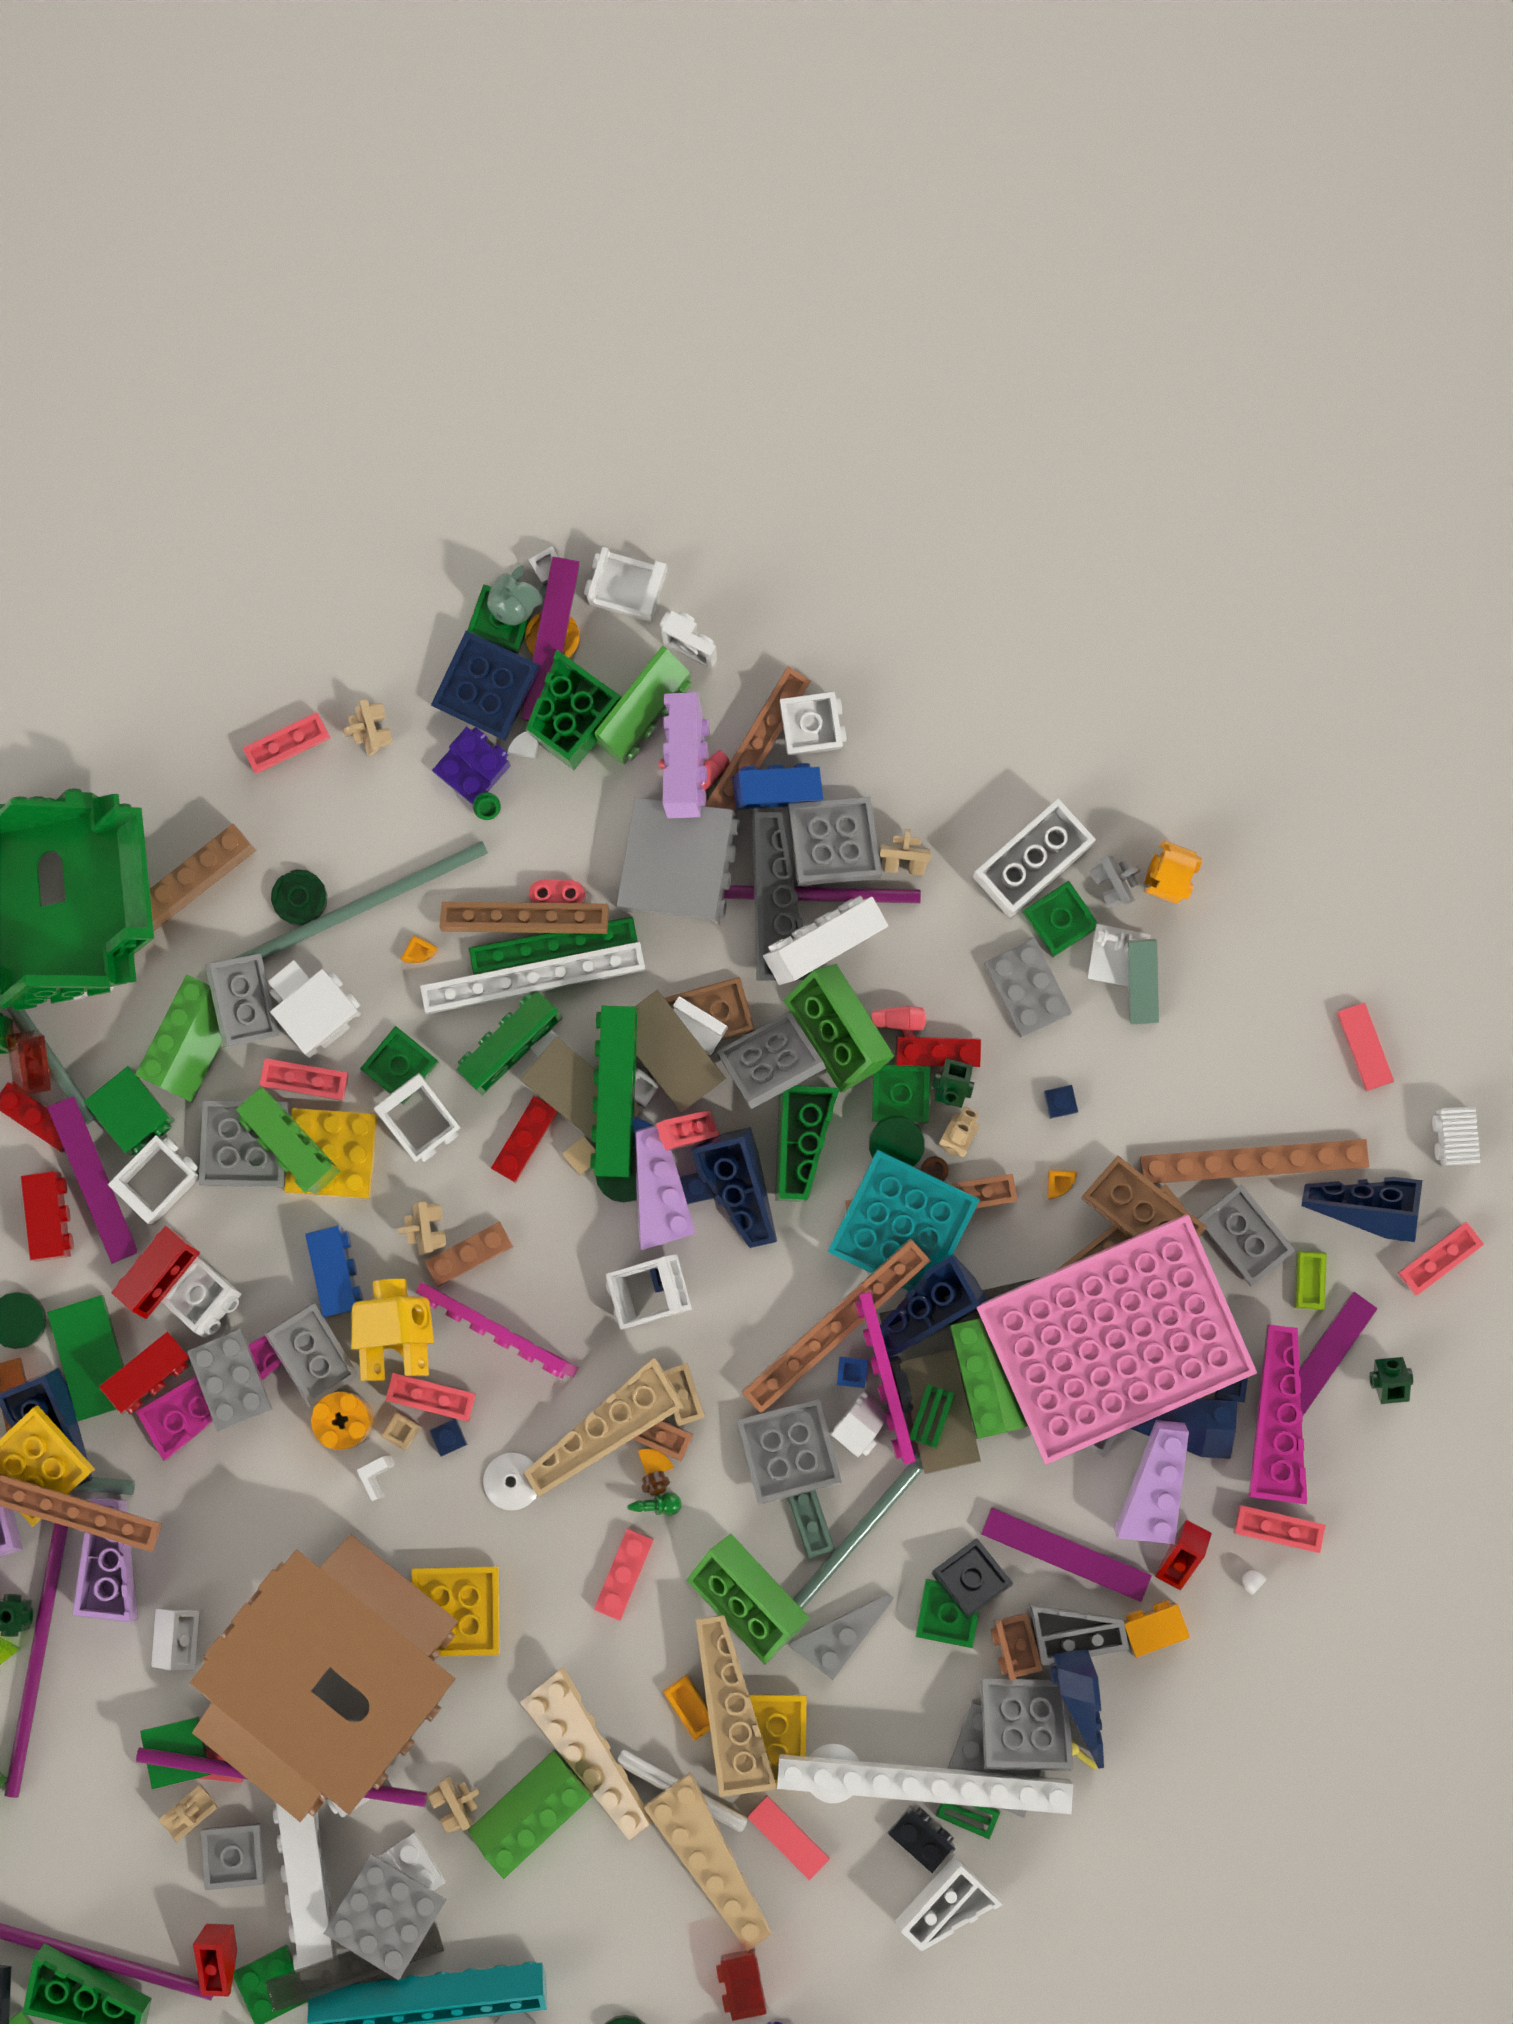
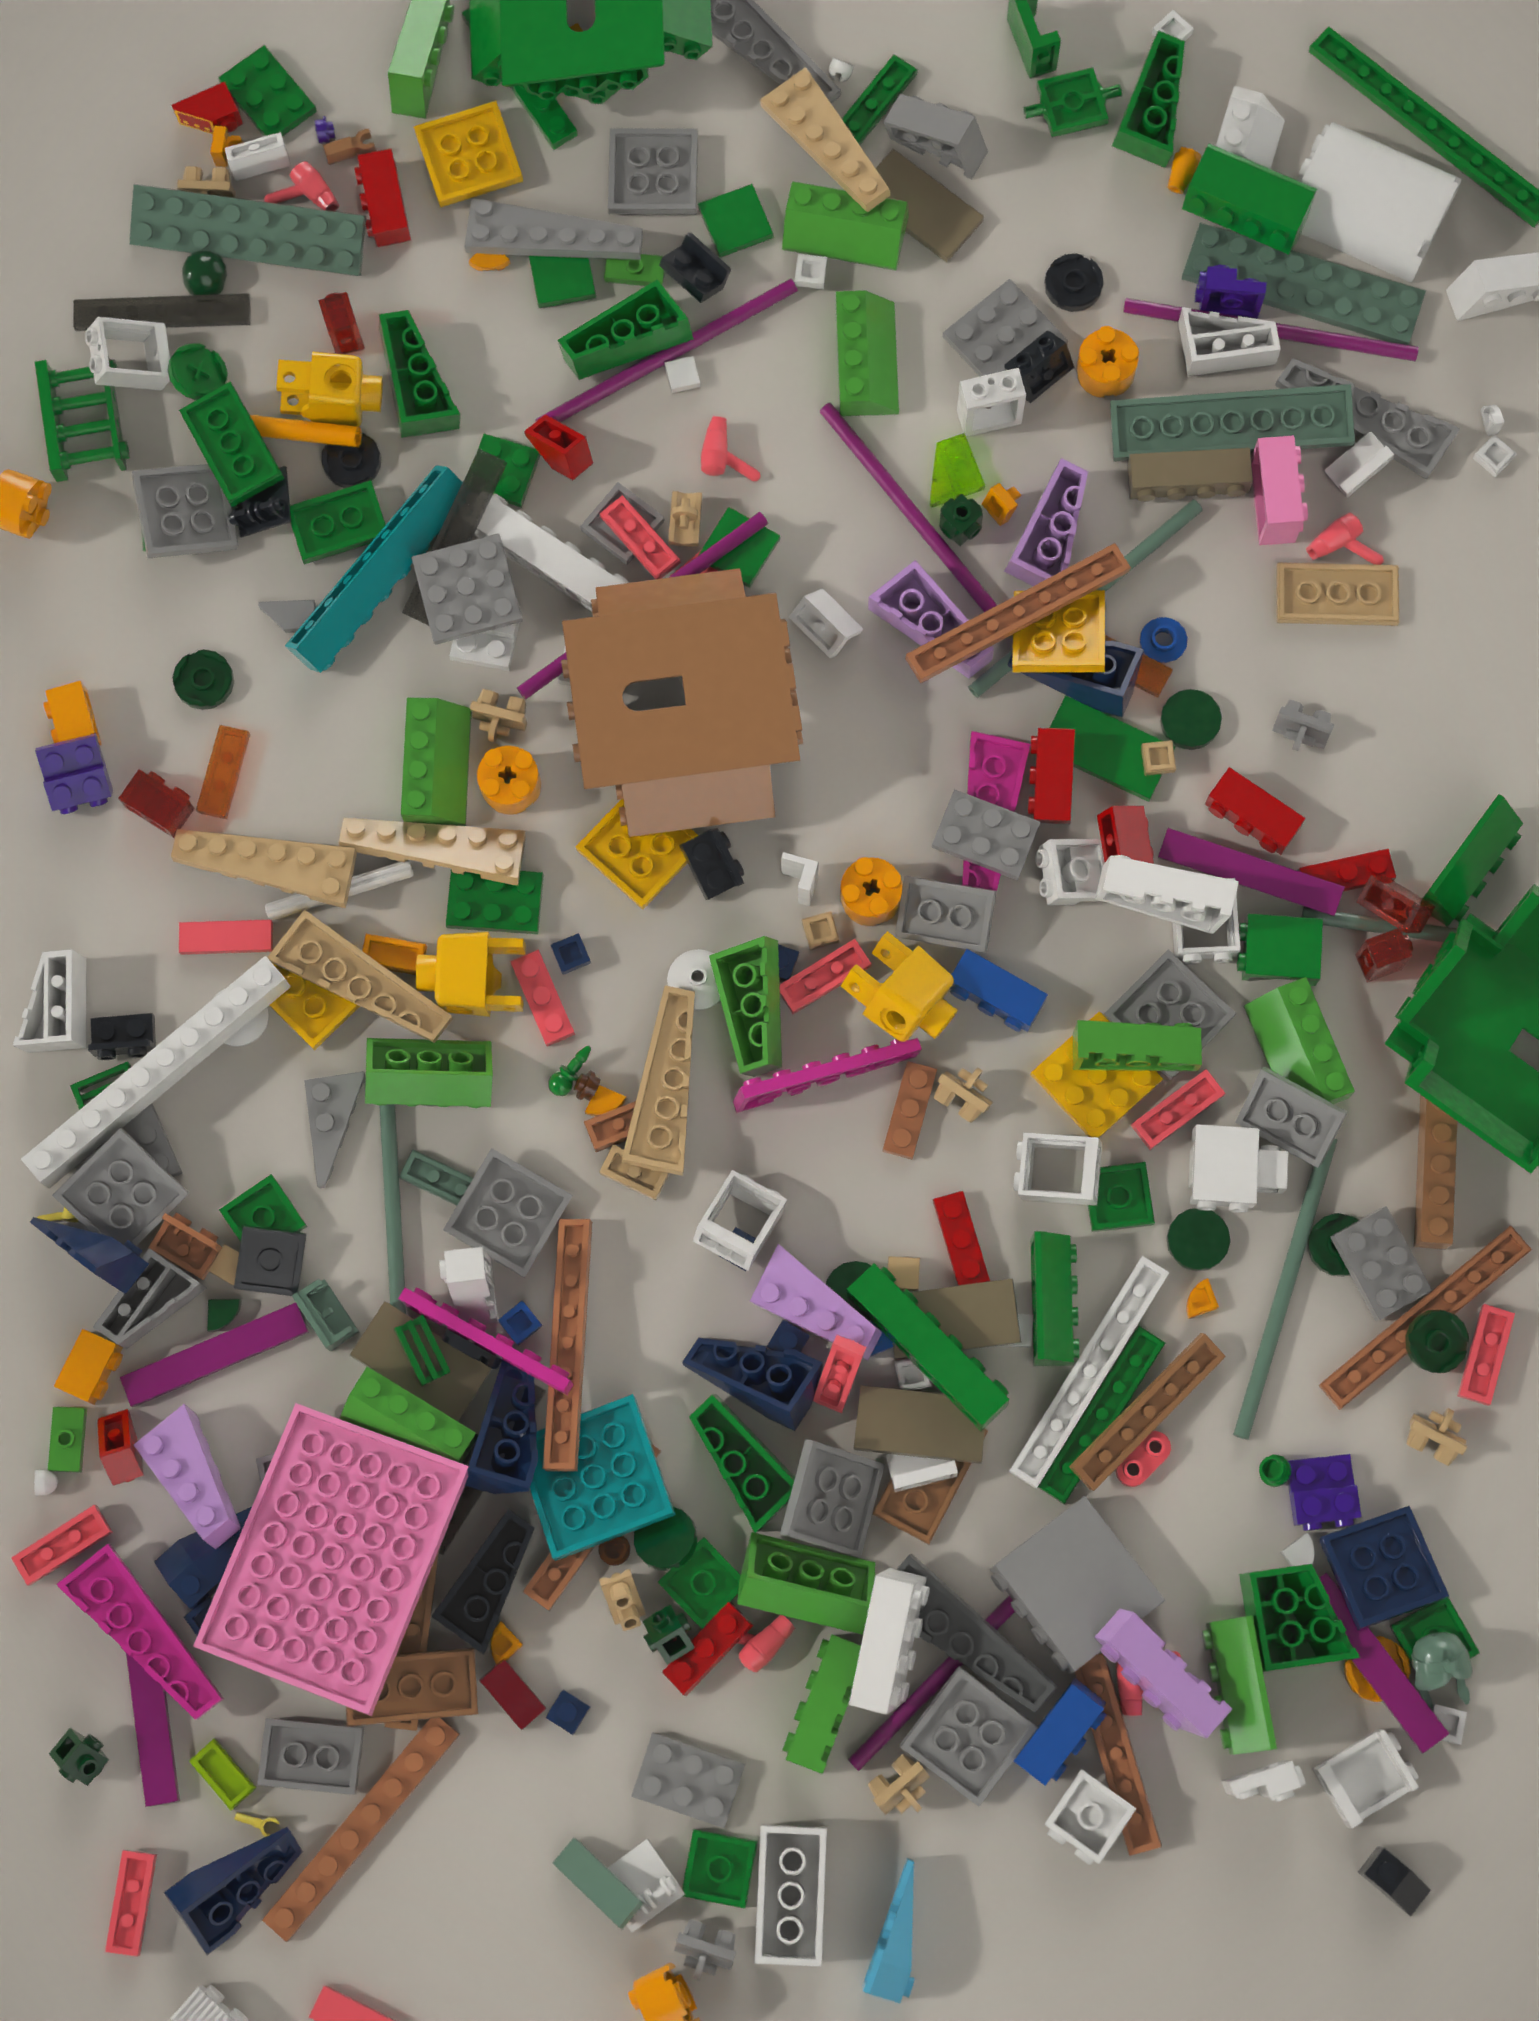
camera: 135 degrees right, 5 degrees down
(66, 1315) = (1158, 757): none -> tan tile
(71, 1038) = (1384, 954): none -> clear red brick
(78, 1925) = (682, 374): none -> white tile
(120, 1837) = (716, 454): none -> coral piece
(160, 1215) = (1167, 893): none -> white wedge
(232, 1831) = (640, 538): none -> coral tile
(287, 859) = (1381, 1263): none -> light grey plate
(297, 802) = (1448, 1296): none -> nougat tile
(306, 780) = (1437, 1341): none -> dark green tile
(380, 988) = (1198, 1239): none -> dark green tile
(422, 1548) = (712, 863): none -> black bracket
(494, 1766) = (504, 763): none -> light orange brick
(495, 1426) = (751, 1003): none -> bright green wedge
(576, 1584) = (570, 954): none -> dark blue plate
(591, 1670) = (495, 905): none -> green plate
(658, 1640) = (466, 975): none -> yellow piece
(672, 515) = (1394, 1880): none -> black slope
(676, 1961) = (223, 772): none -> clear orange tile
(901, 946) = (825, 1706): none -> bright green wedge
(969, 1506) = (325, 1314): none -> sand green hinge
(1002, 1606) = (225, 1264): none -> tan tile
(1014, 762) = (892, 1959): none -> medium azure wedge
(1035, 1577) = (221, 1313): none -> dark green tile
(1036, 1229) = (482, 1588): none -> black wedge
(1084, 1146) = (512, 1694): none -> dark red tile
(1212, 1596) = (67, 1439): none -> bright green plate
(1316, 1228) = (256, 1822): none -> light yellow hand

